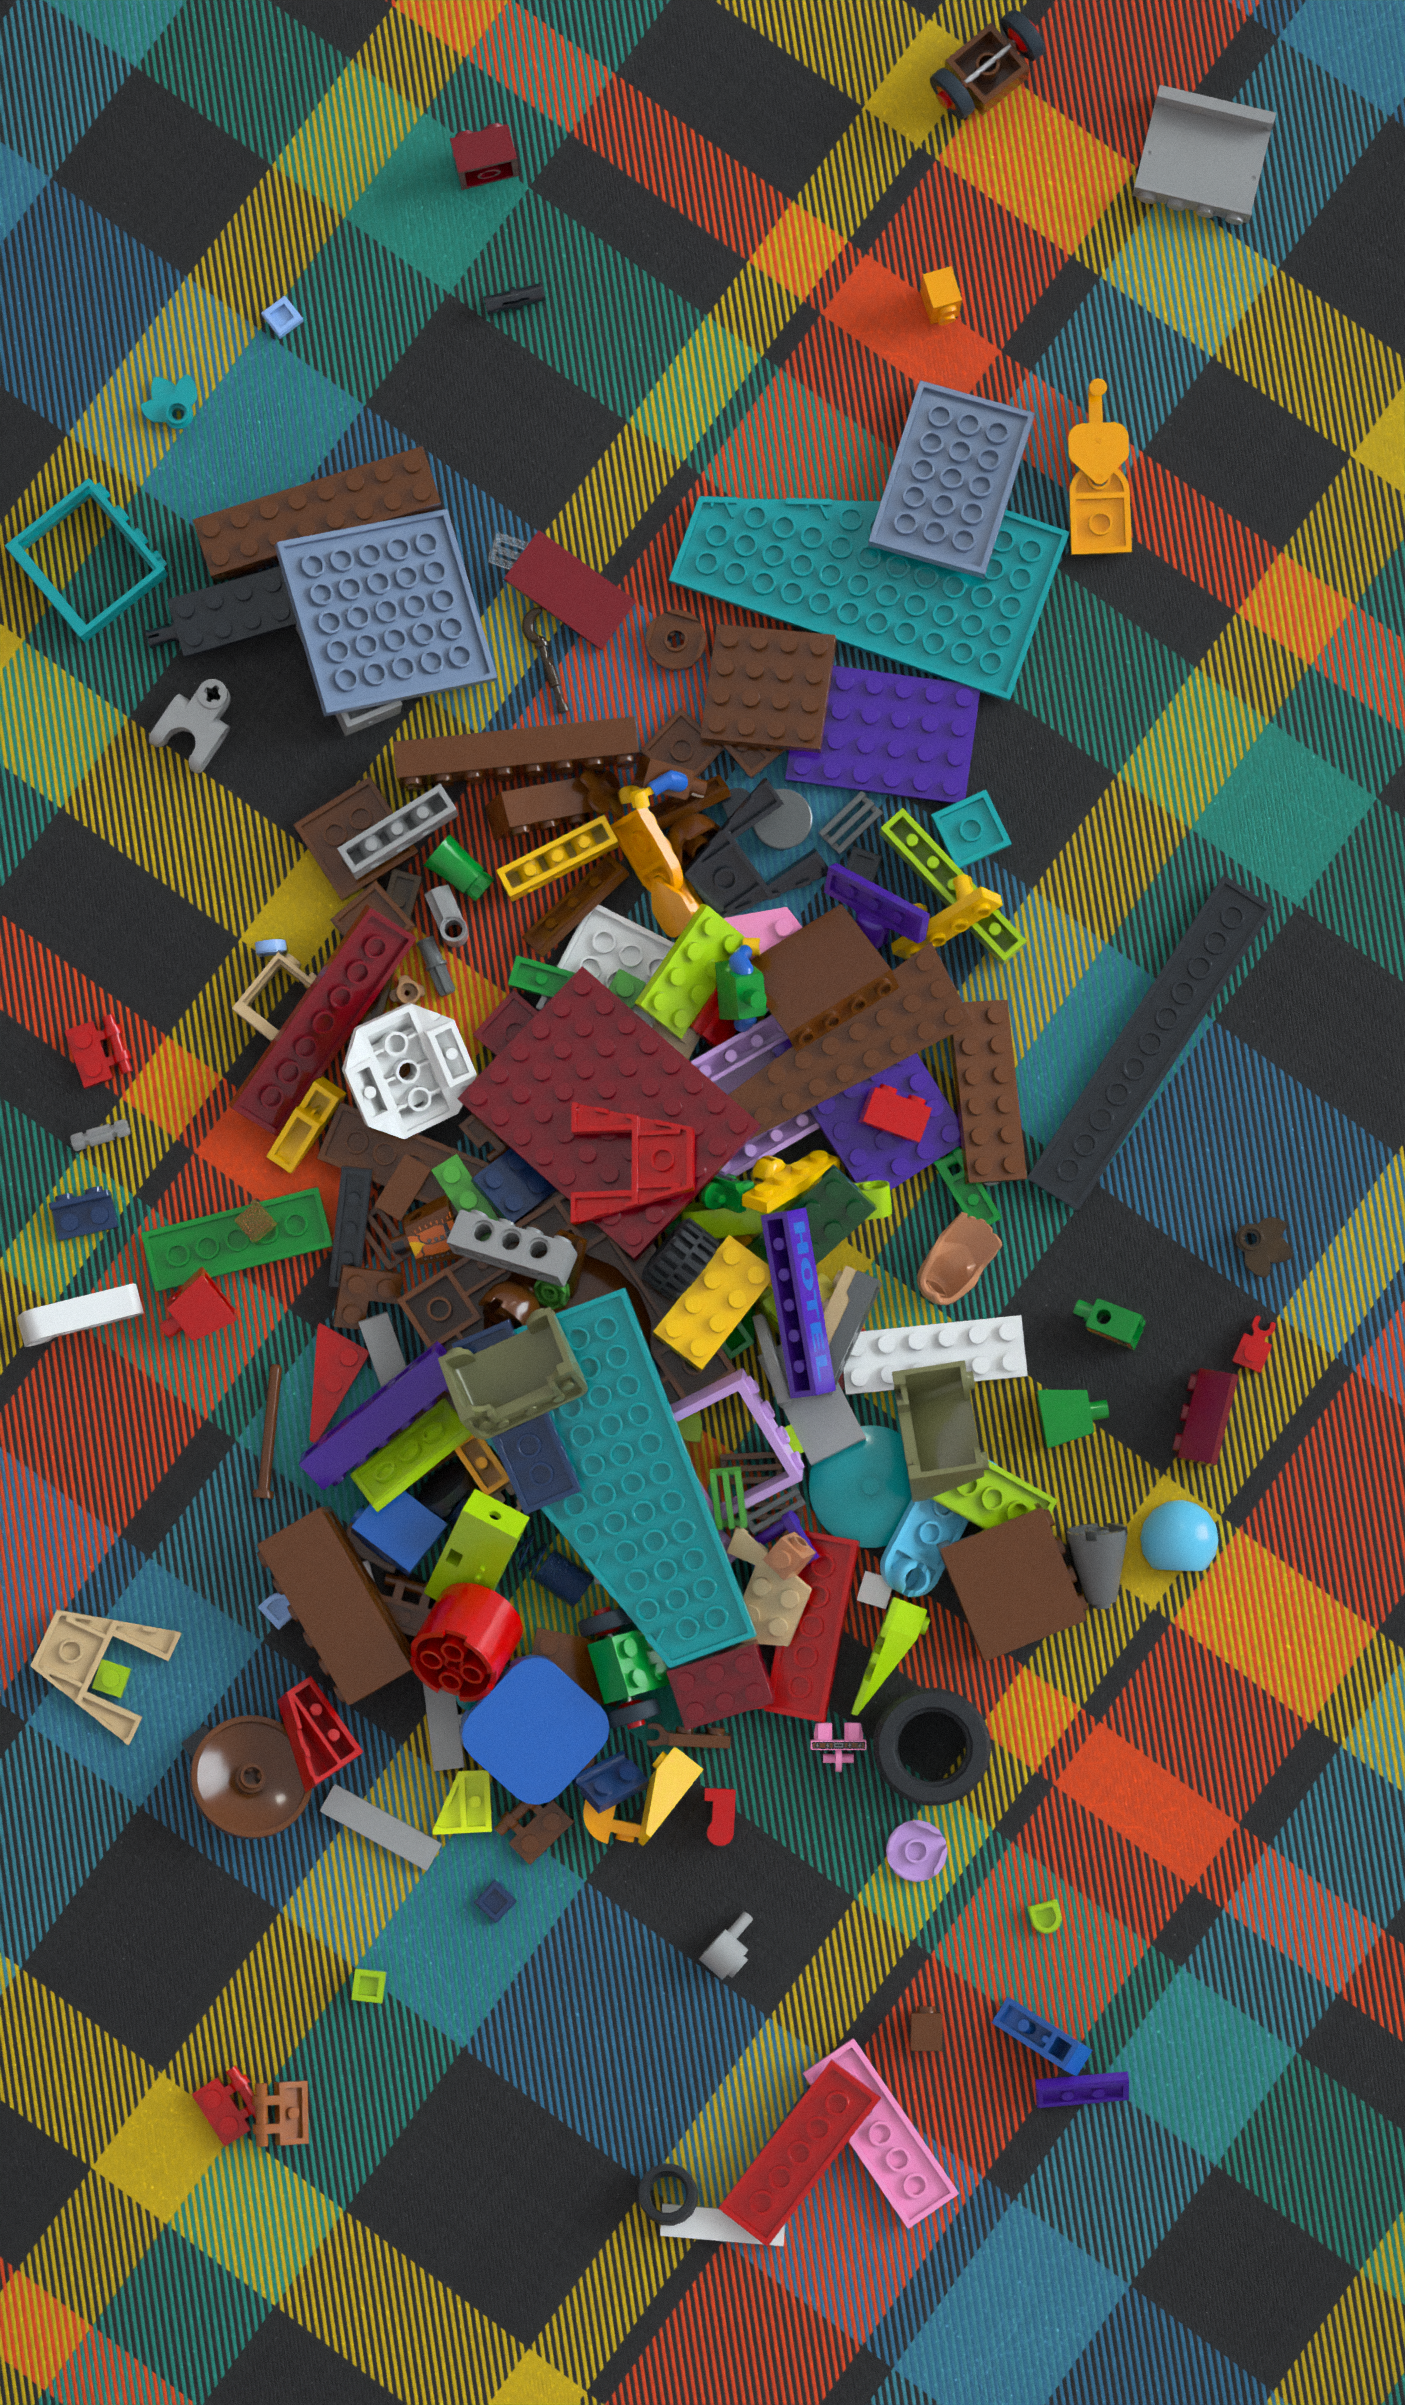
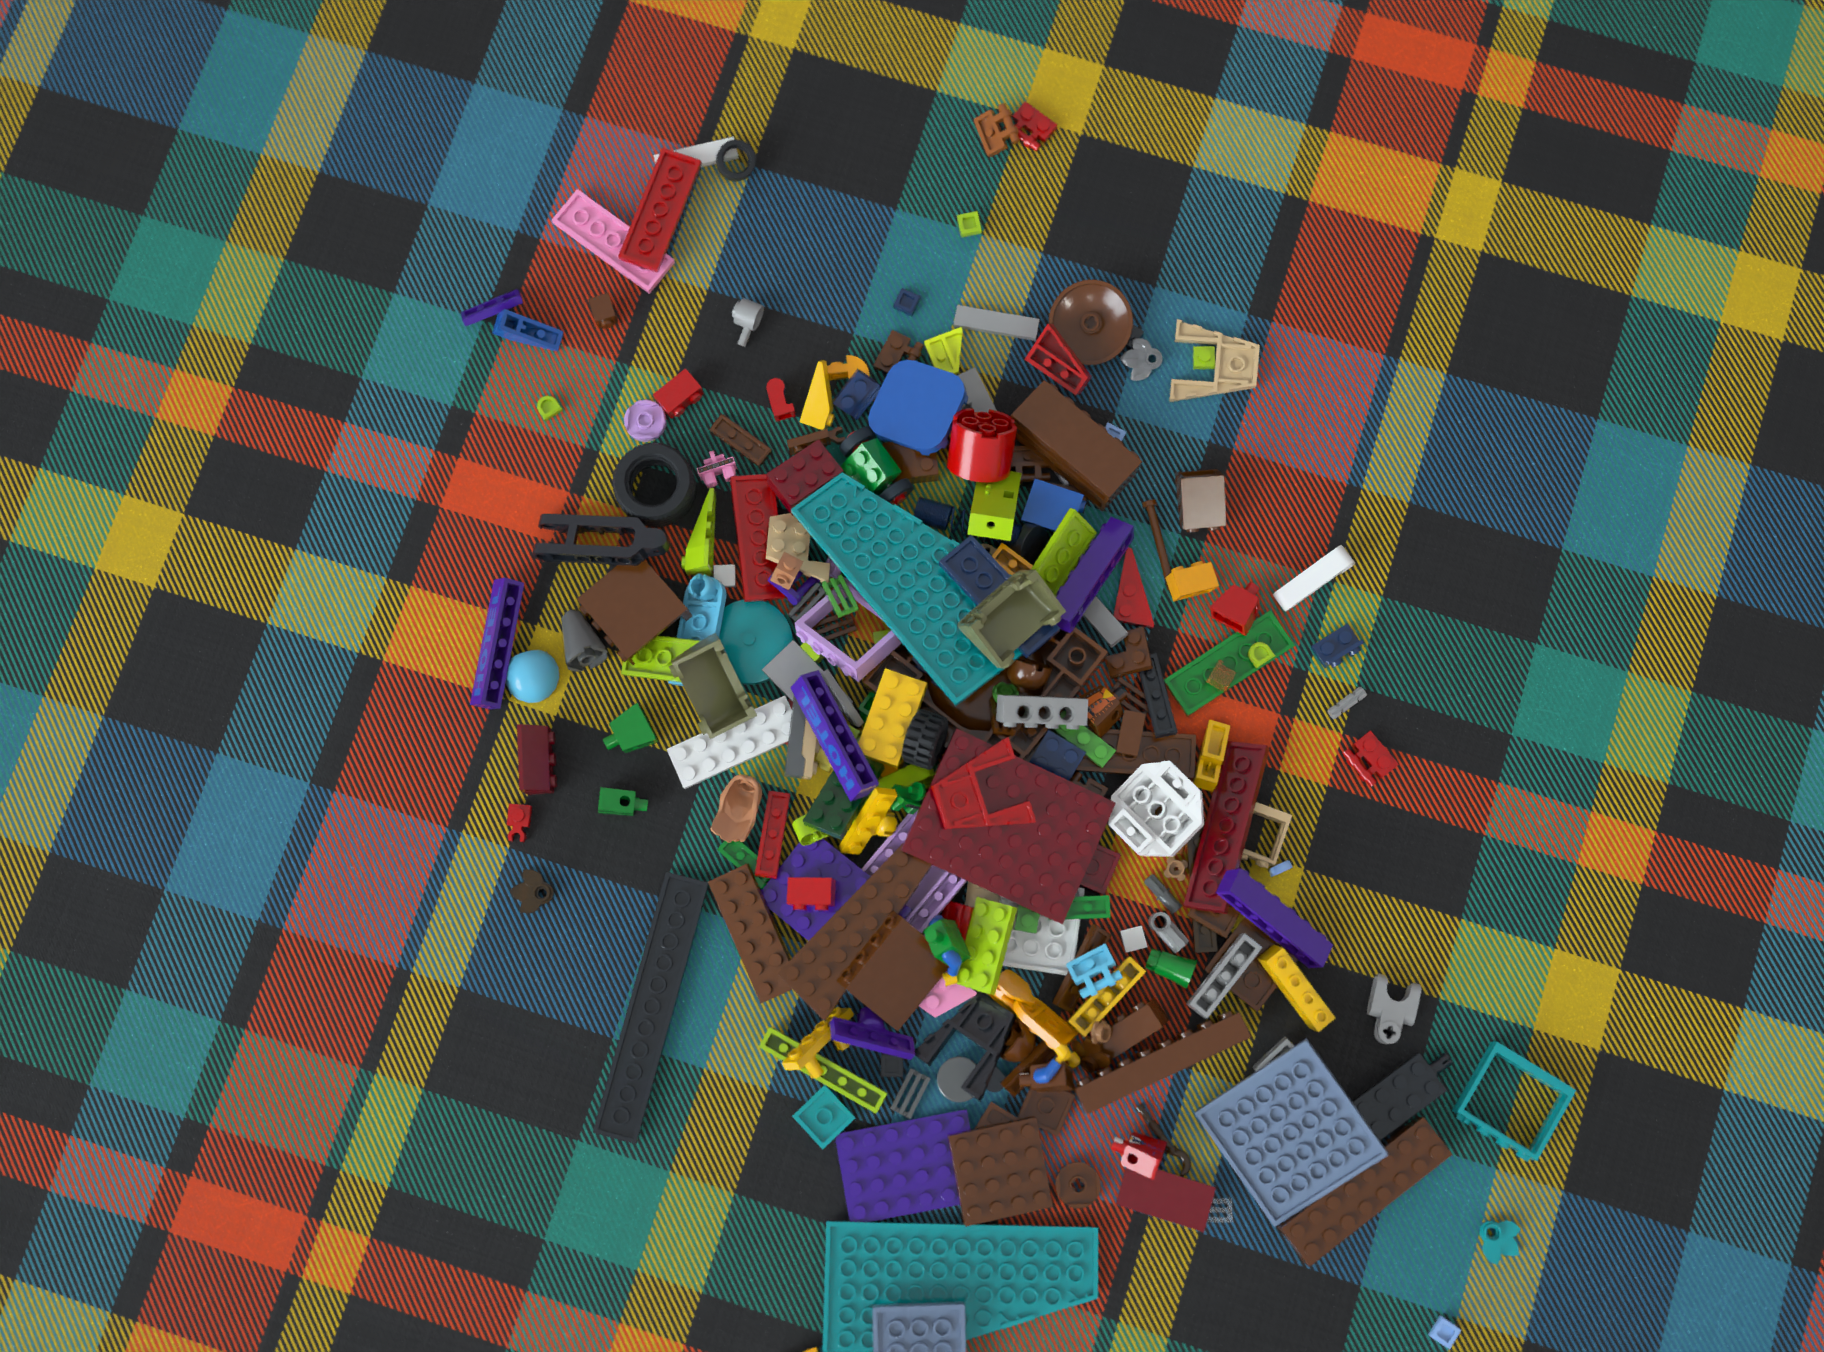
camera: 165 degrees right, 5 degrees down
(191, 1476) = (1201, 499): none -> slope
(192, 1235) = (1260, 653): none -> lime tile
(203, 1706) = (1138, 359): none -> flat silver plate
(246, 1365) = (1191, 581): none -> light orange brick
(306, 880) = (1274, 918): none -> dark purple brick
(310, 787) = (1296, 988): none -> yellow brick
(495, 921) = (1133, 939): none -> white tile
(562, 901) = (1089, 966): none -> medium azure plate
(581, 812) = (1100, 1032): none -> medium nougat plate
(583, 650) = (1140, 1153): none -> red torso
(792, 1777) = (740, 440): none -> reddish brown tile
(857, 1870) = (678, 394): none -> red brick
(921, 1213) = (772, 834): none -> red tile
(968, 1661) = (645, 541): none -> black piece
(1213, 1594) = (497, 643): none -> dark purple brick

